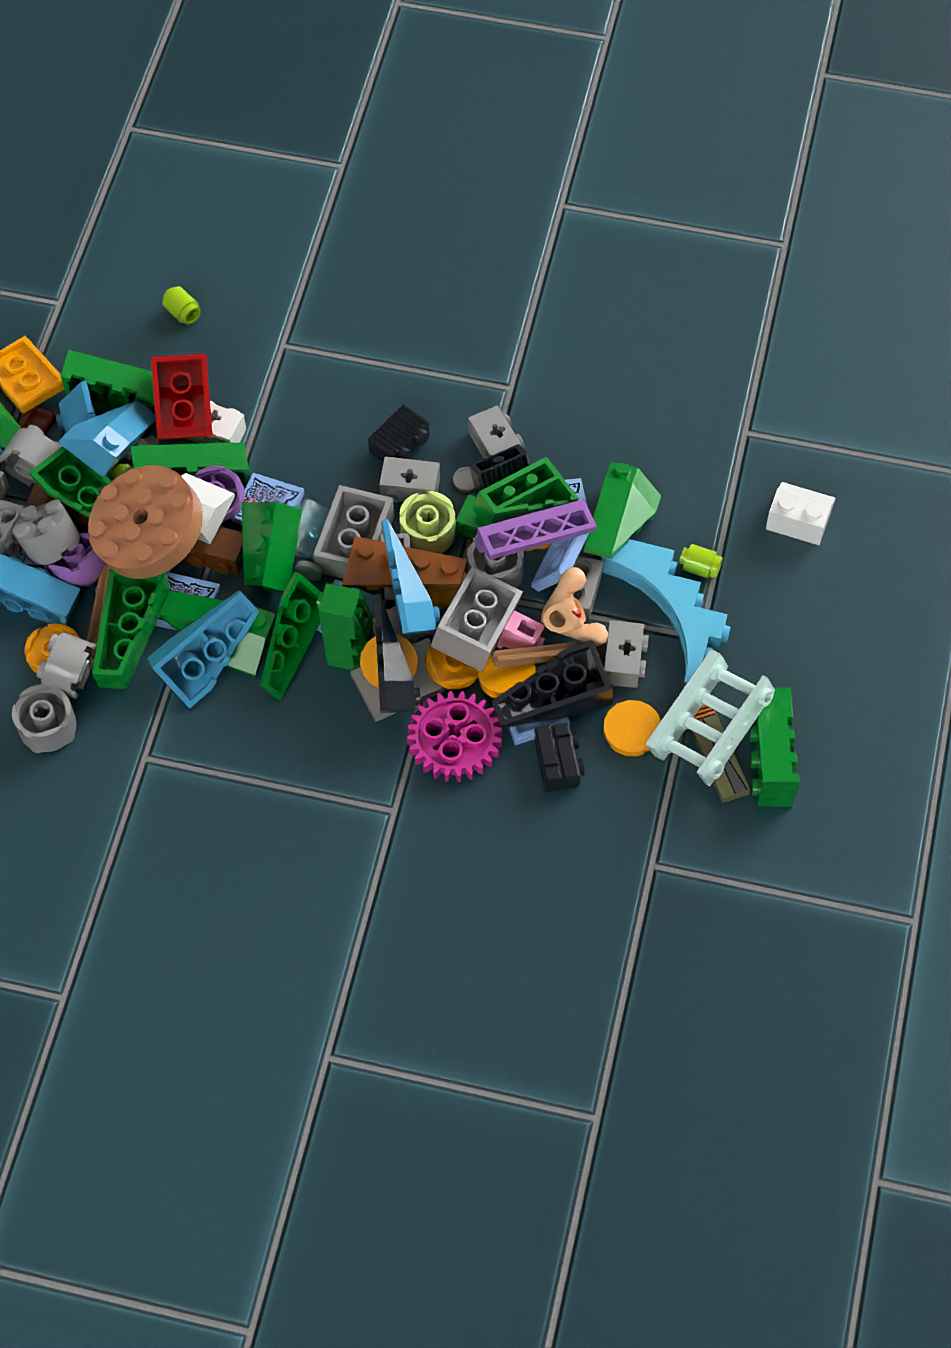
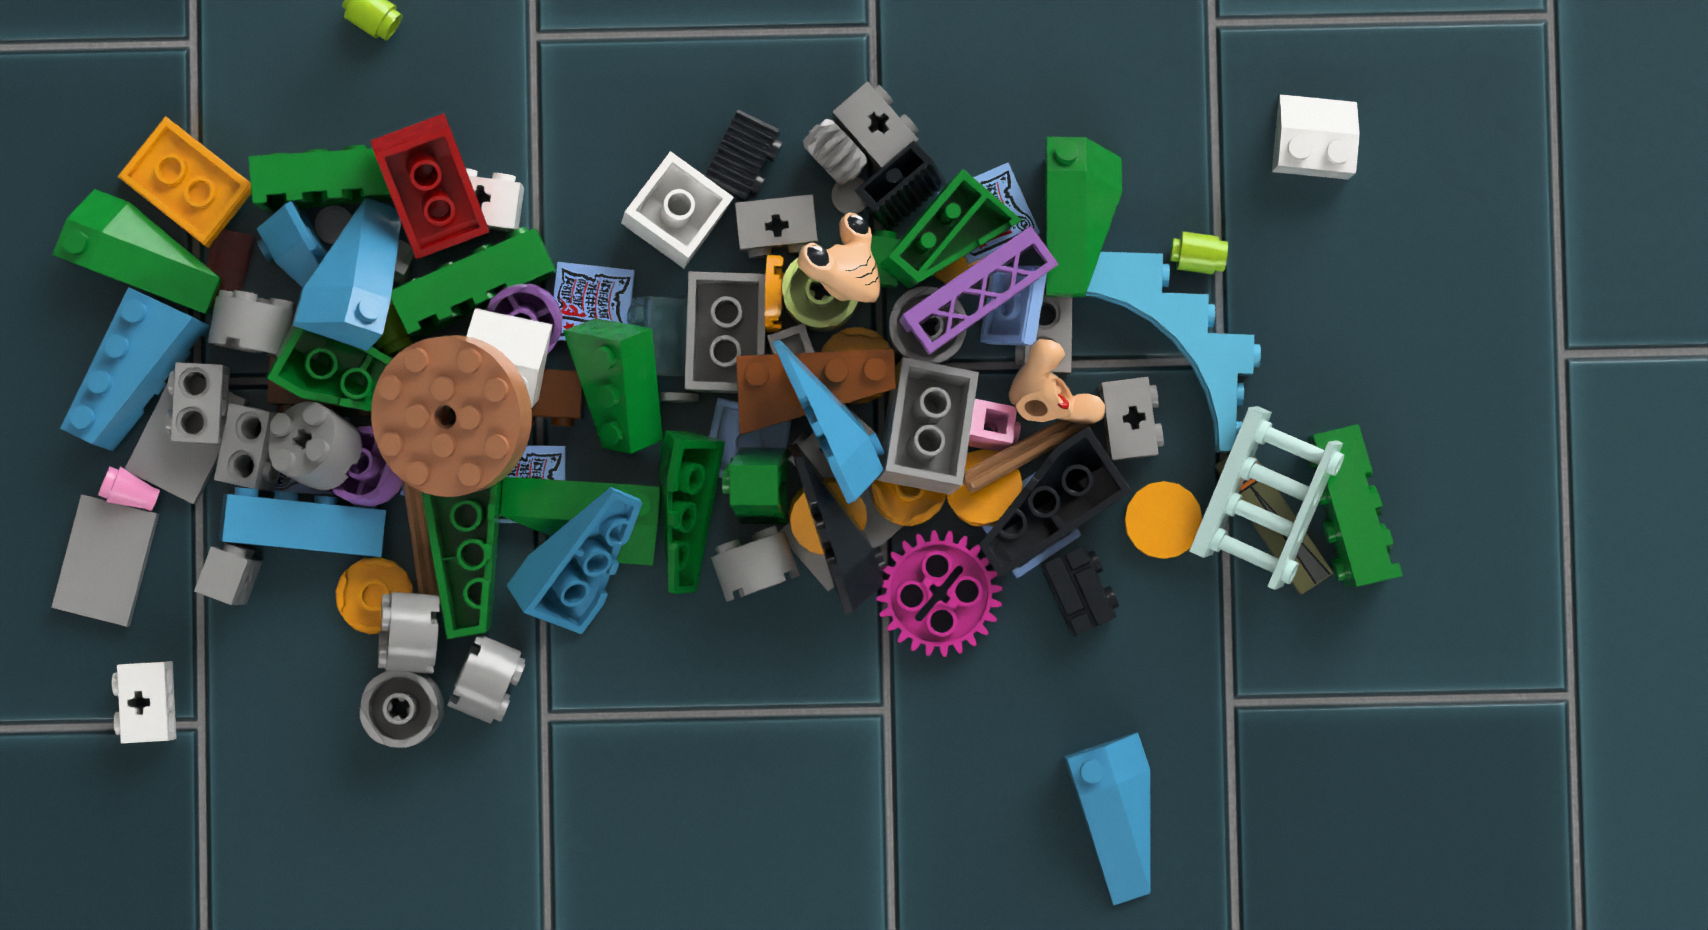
camera: 20 degrees left, 25 degrees up
(110, 712) = (485, 679): none -> light grey brick
(326, 680) = (754, 564): none -> light grey brick
(343, 454) = (676, 209): none -> white slope
(392, 508) = (773, 293): none -> light orange tile
(445, 499) = (845, 269): none -> light nougat head
(462, 443) = (834, 151): none -> light grey gear
(547, 909) = (1115, 803): none -> dark azure wedge

